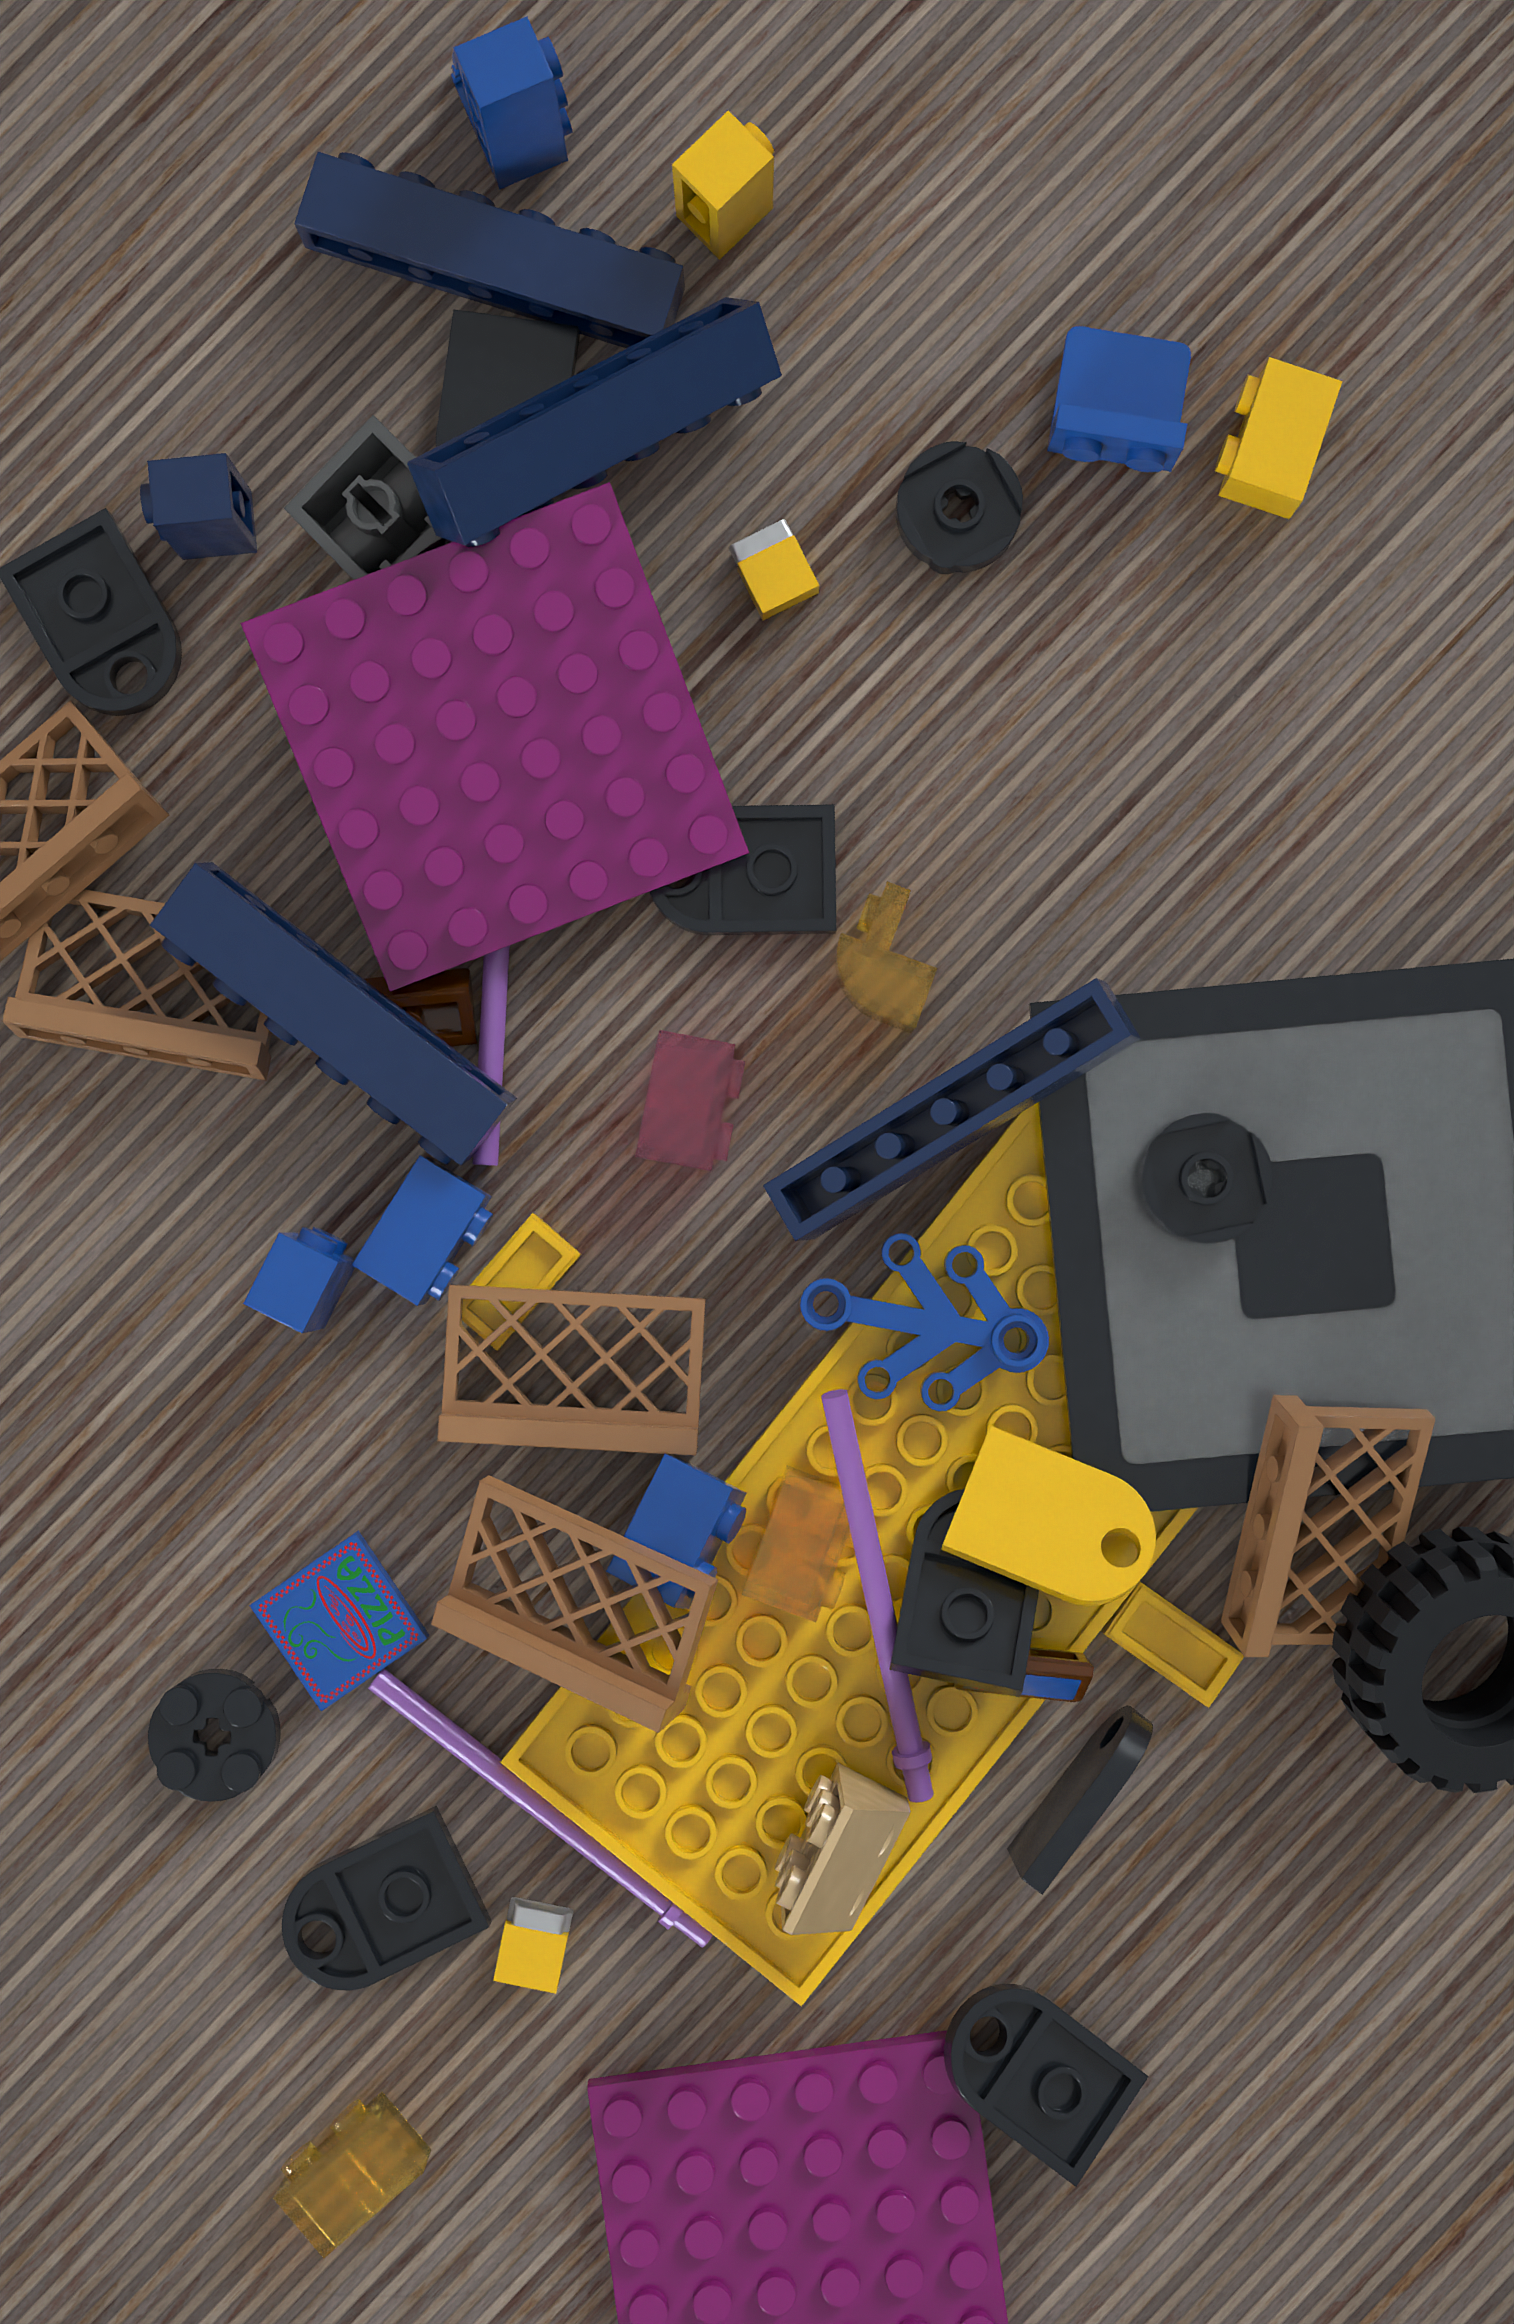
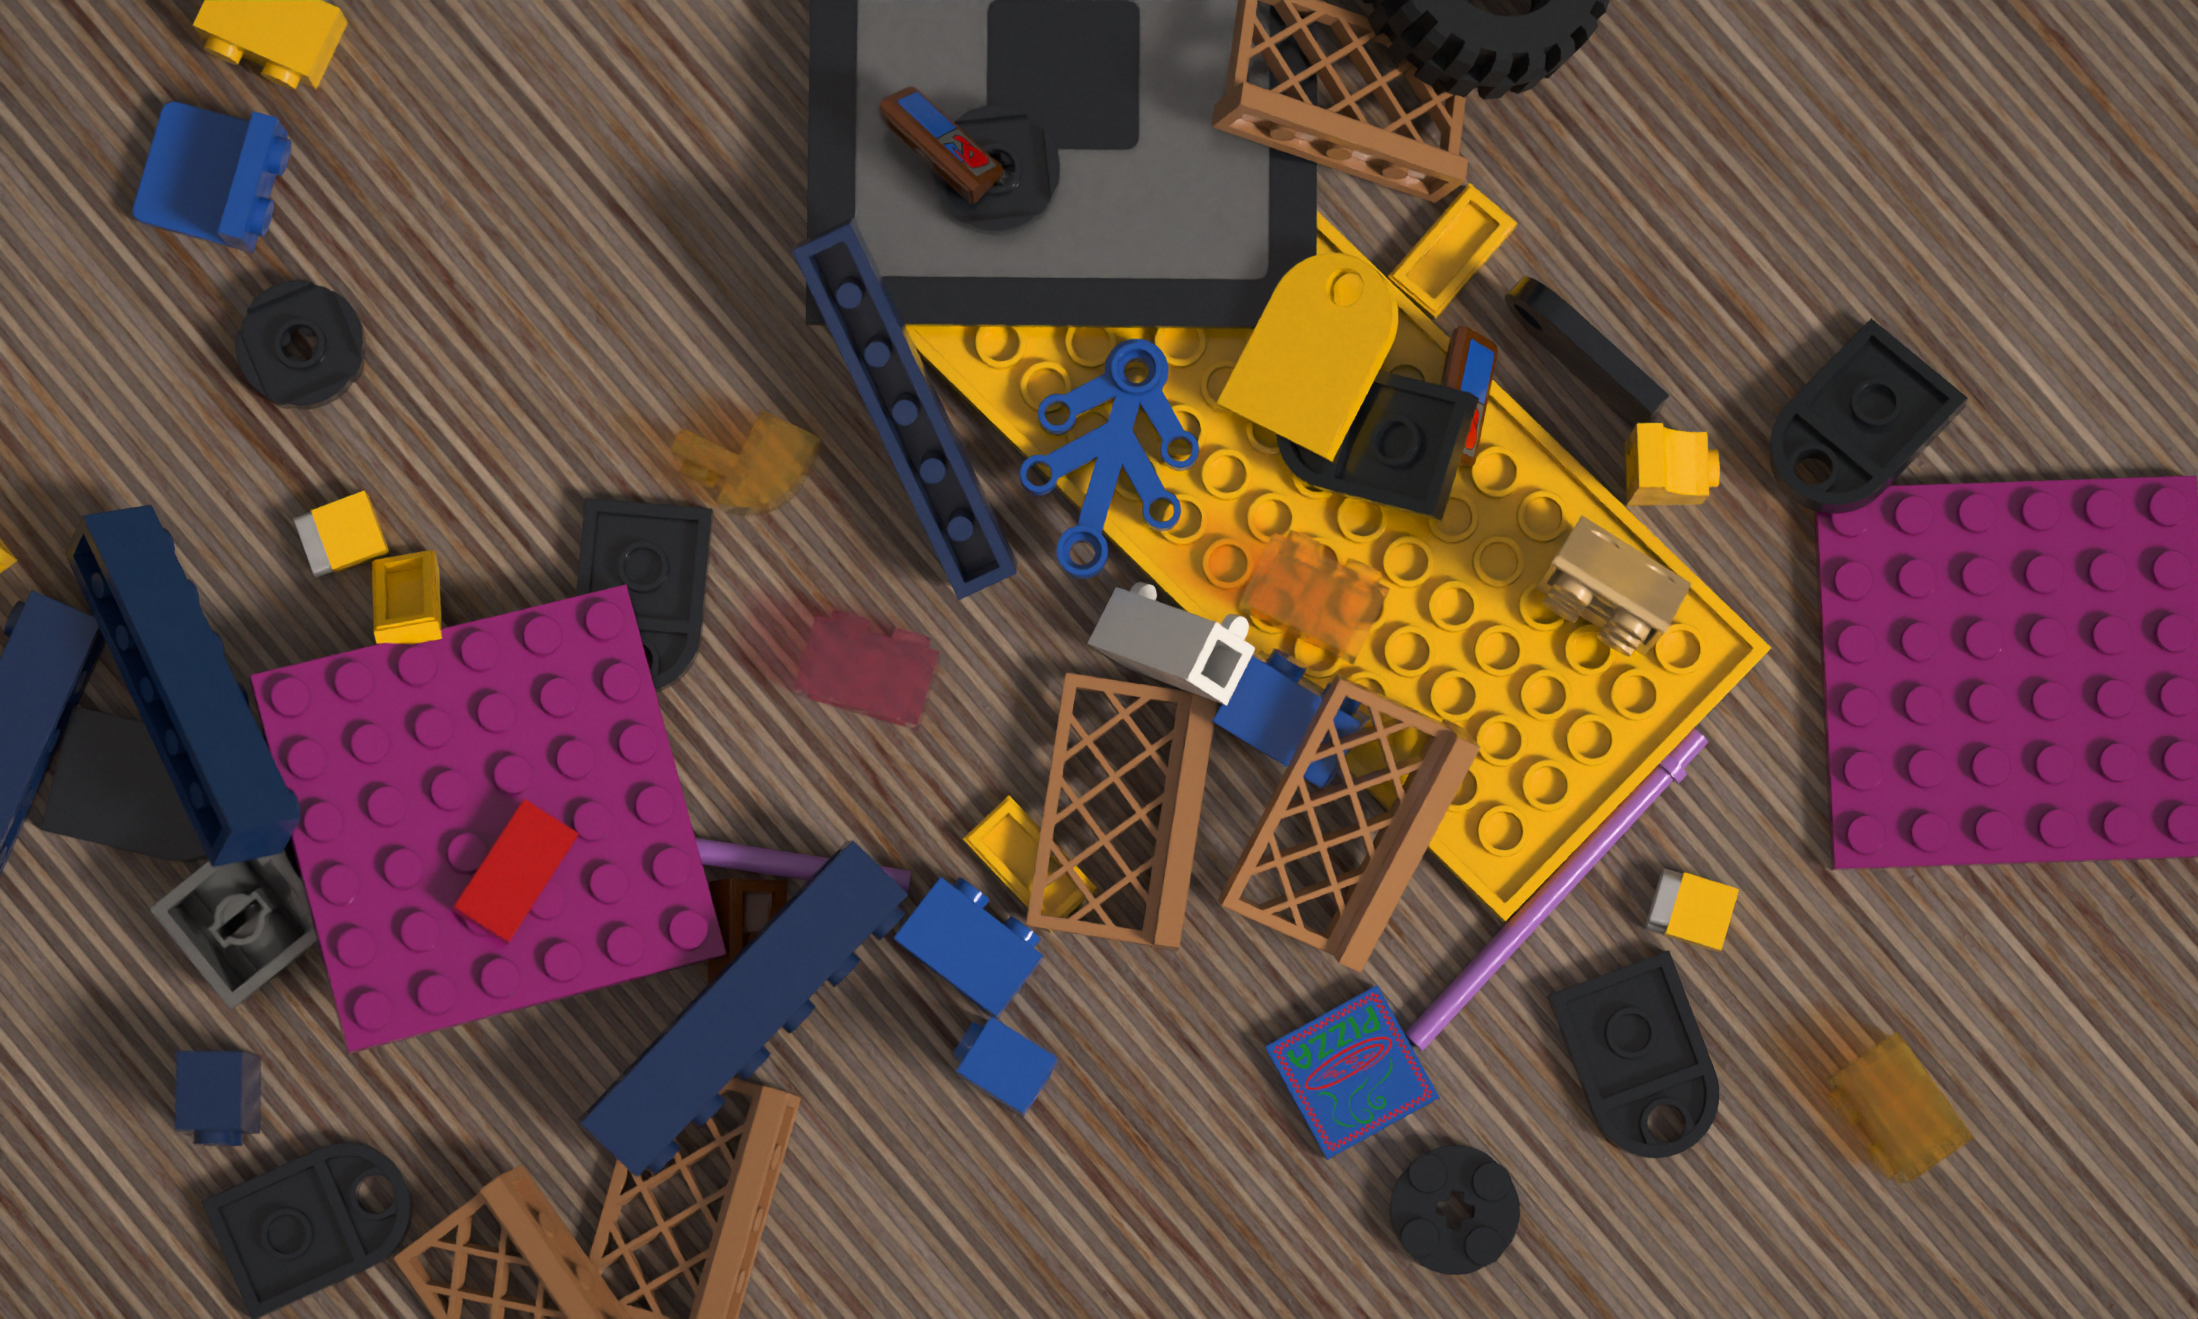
camera: 85 degrees left, 5 degrees down
(438, 770) = (515, 871): none -> red tile
(711, 636) = (406, 598): none -> yellow tile
(740, 1406) = (1173, 643): none -> white brick
(911, 1751) = (1528, 513): medium lavender bar -> none
(974, 1885) = (1668, 466): none -> yellow arch
(1227, 1118) = (940, 143): none -> reddish brown slope

